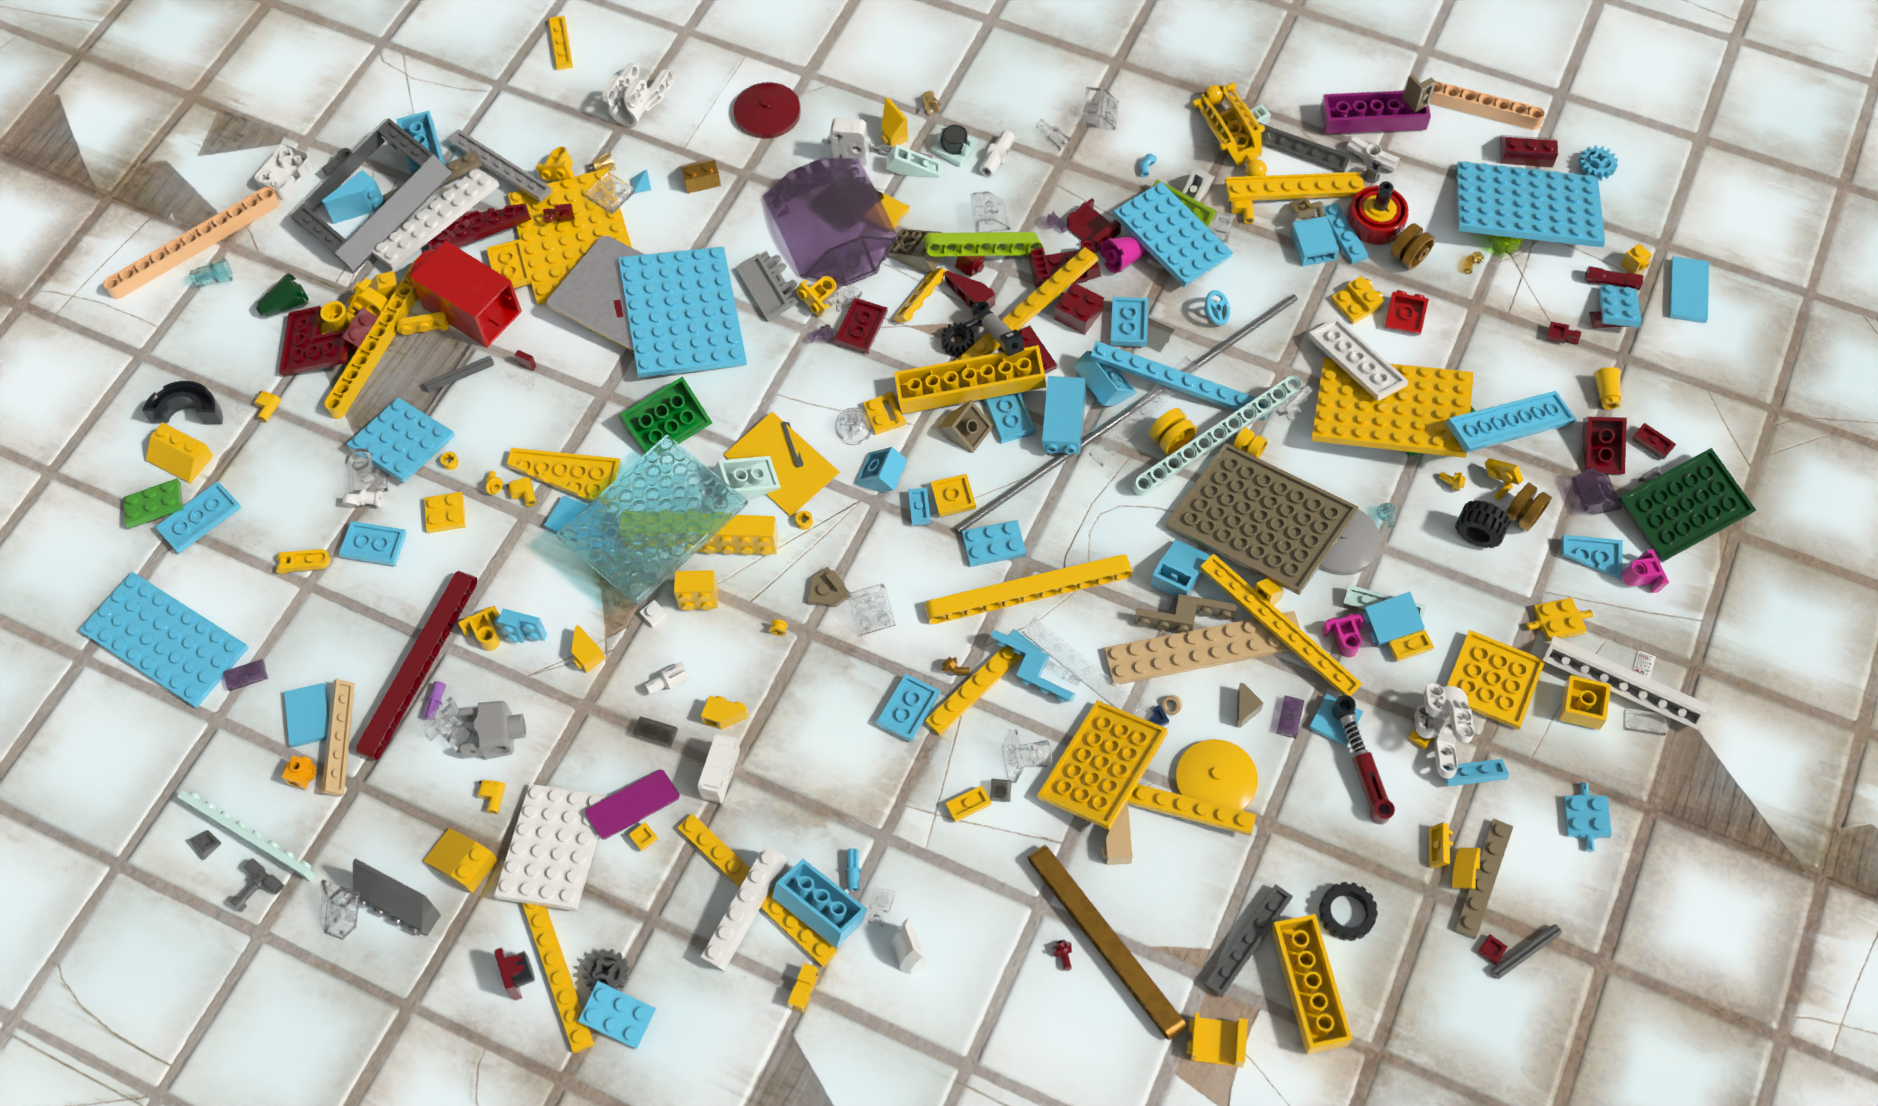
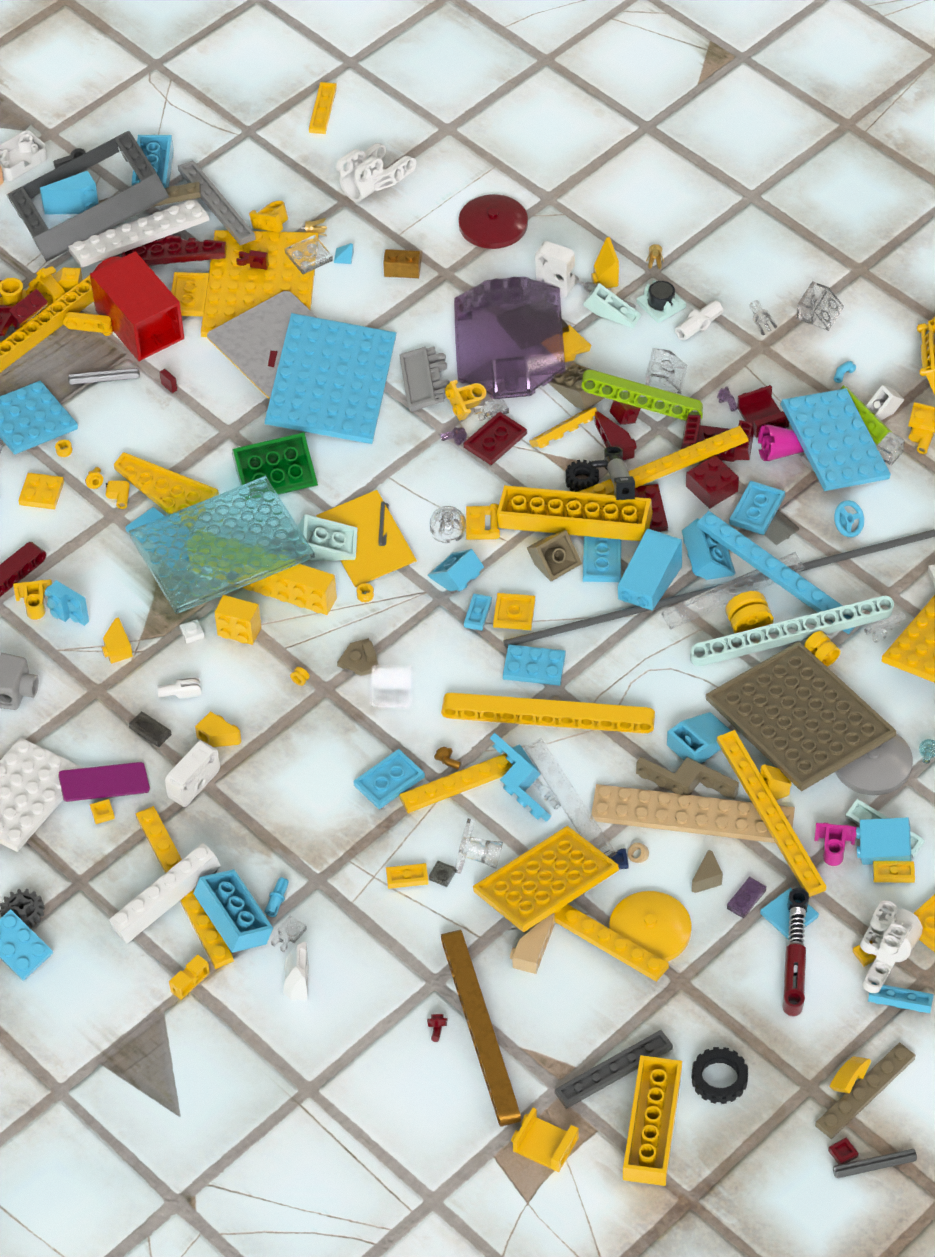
camera: 20 degrees right, 10 degrees down
(1439, 845) = (834, 1046): yellow plate -> none

